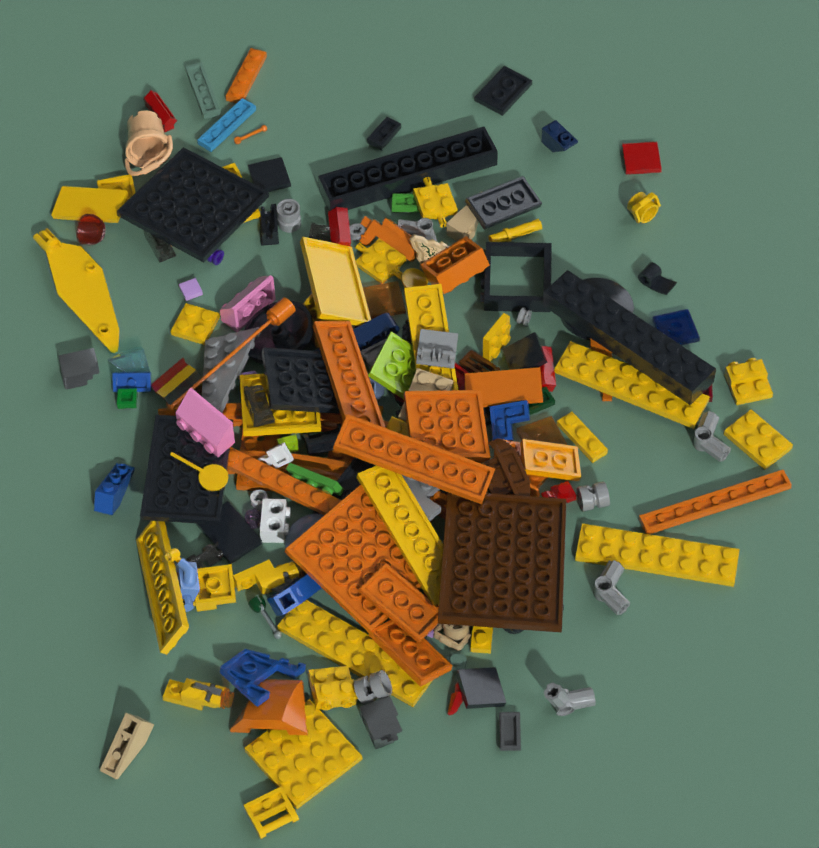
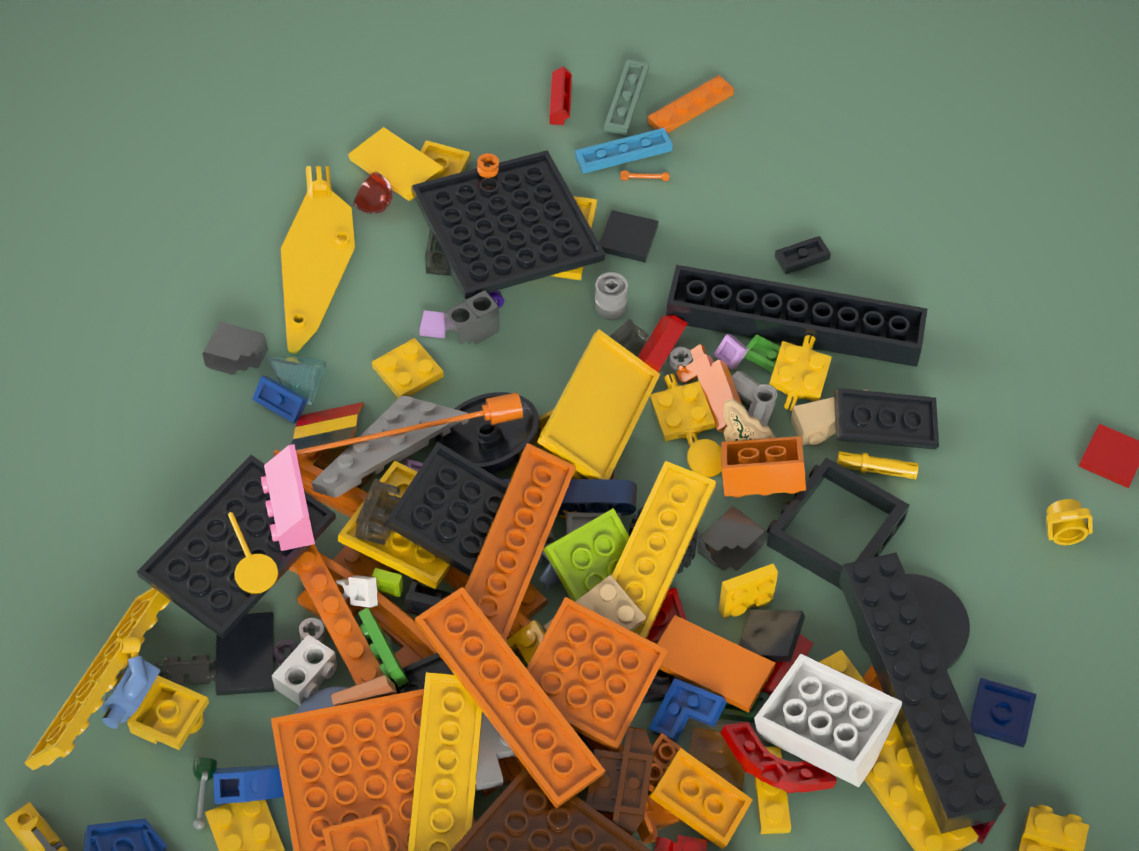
camera: 30 degrees right, 0 degrees up
(112, 489) = (155, 519): blue slope -> none
(127, 398) = (259, 416): green plate -> none
(146, 143) = (511, 123): light nougat piece -> none
(156, 178) = (482, 168): none -> orange bush
(223, 264) = (464, 318): none -> dark grey piece
(248, 302) = (483, 376): bright pink slope -> none
(268, 577) = (239, 739): yellow plate -> none
(269, 226) = (580, 299): black hinge -> none
(329, 503) = (367, 690): none -> nougat tile
(384, 210) = (731, 351): none -> lavender tile
(384, 299) = (646, 458): clear orange tile -> none
(437, 348) = (653, 563): light grey hinge -> none
(465, 316) = (731, 540): none -> dark grey piece
(474, 367) = (697, 595): reddish brown tile -> none
(503, 90) = (991, 277): black tile -> none
(524, 316) = (809, 582): light grey bush -> none
(557, 138) = (1016, 370): dark blue slope -> none
(571, 423) = (769, 768): none -> red plate
(591, 379) = (828, 719): none -> white slope
(652, 278) = (1017, 625): black panel -> none

